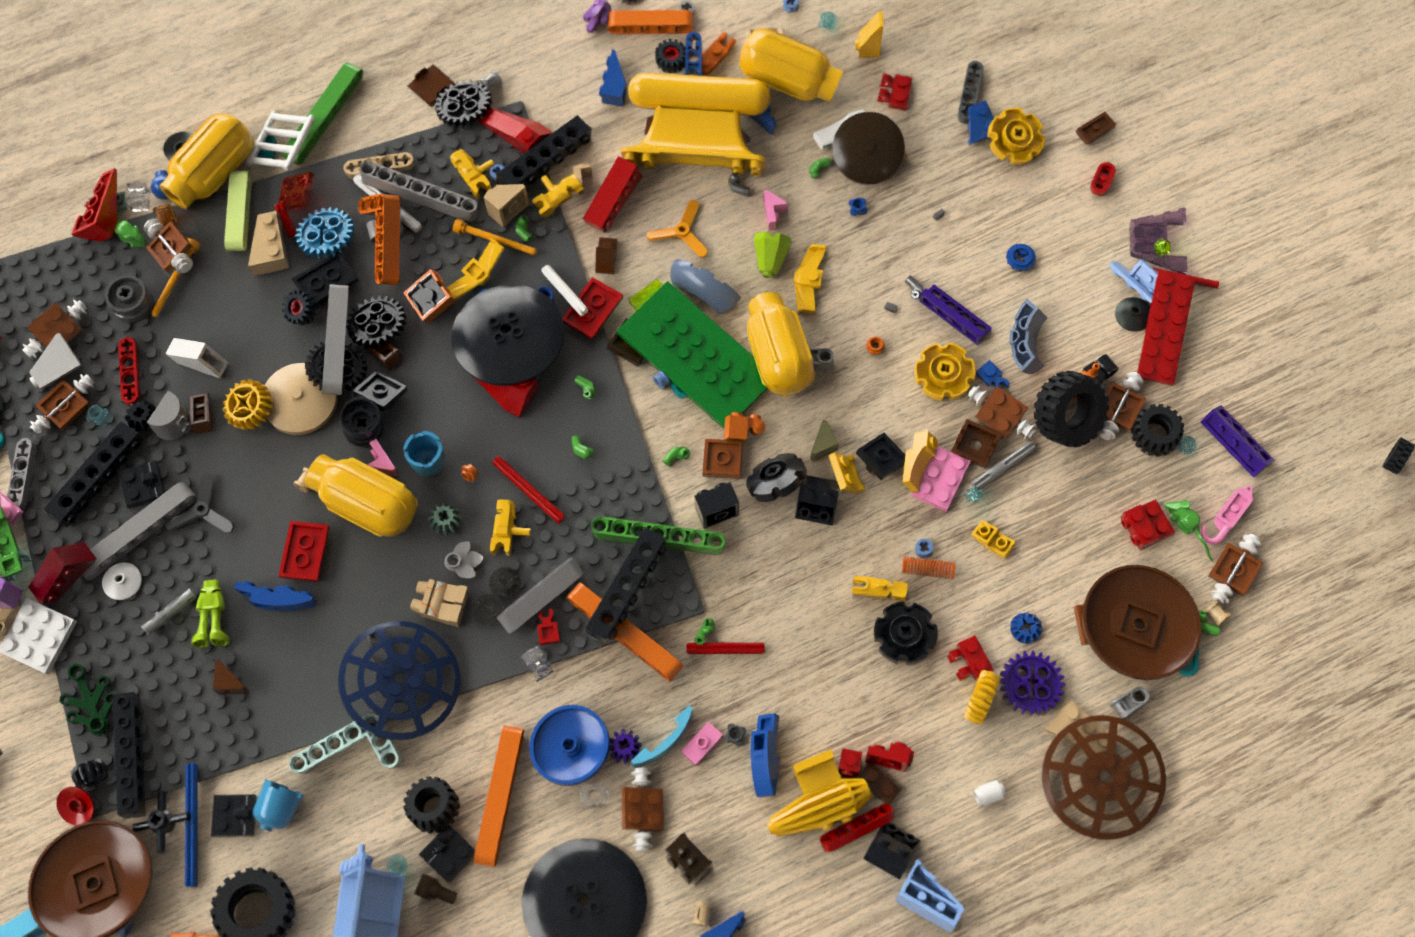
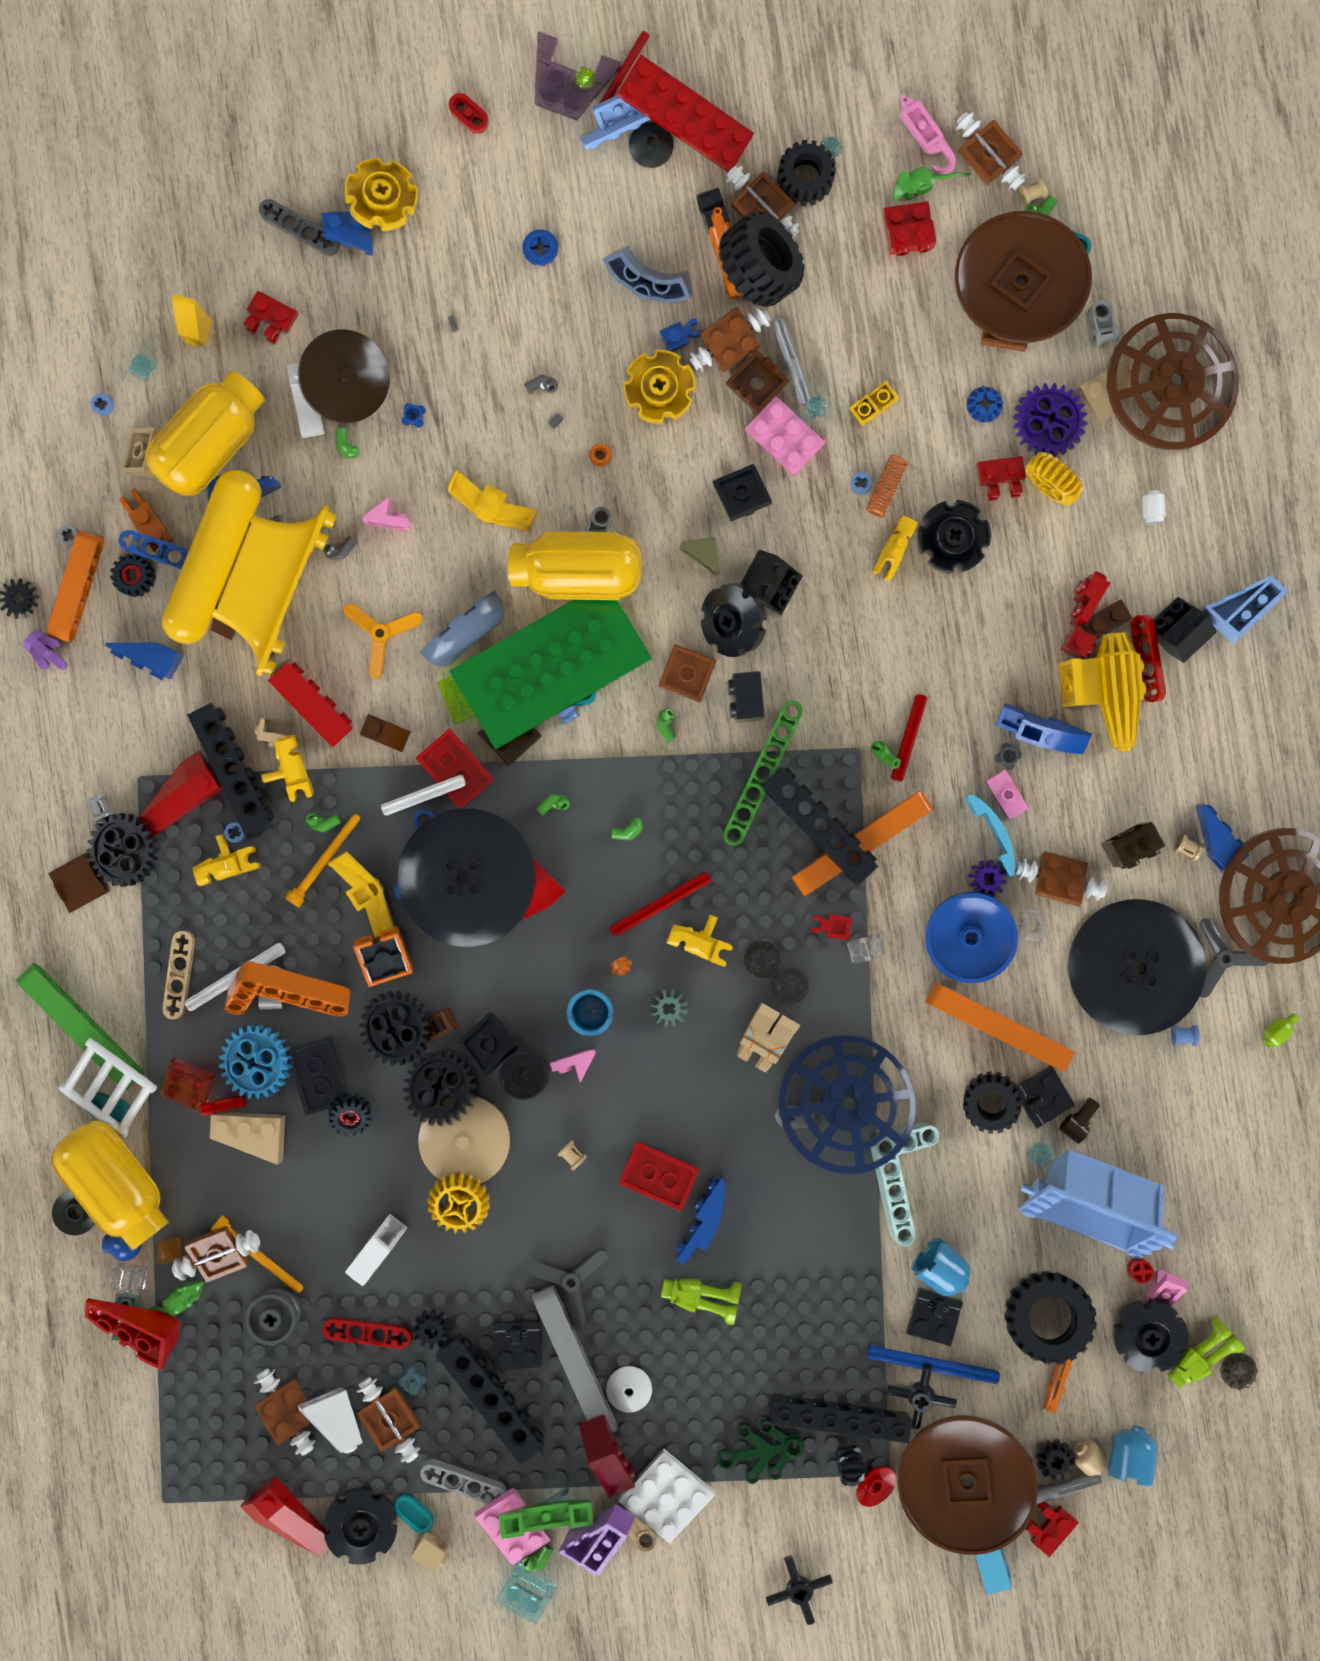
camera: 75 degrees left, 20 degrees up
(168, 612) = (682, 1337): light grey pin -> none
(170, 418) = (449, 1294): light grey brick -> none
(203, 424) = (458, 1252): reddish brown slope -> none
(226, 682) = (787, 1294): reddish brown slope -> none
(238, 211) = (190, 1160): yellowish green beam -> none
(335, 340) = (410, 1081): light grey beam -> none
(362, 495) = (619, 1094): yellow piece -> none
(412, 185) = (224, 939): light grey beam -> none
(466, 560) = (723, 995): light grey plate -> none
(506, 202) = (285, 834): tan slope -> none
(540, 595) = (793, 924): light grey beam -> none
(737, 426) = (657, 645): orange brick -> none
(771, 252) = (448, 537): lime cone -> none
(846, 473) = (751, 539): yellow plate -> none
(918, 458) = (759, 456): yellow slope -> none
(953, 316) = (591, 354): dark purple fence -> none
(1095, 128) = (397, 95): reddish brown plate -> none
(1237, 440) = (844, 89): dark purple fence -> none

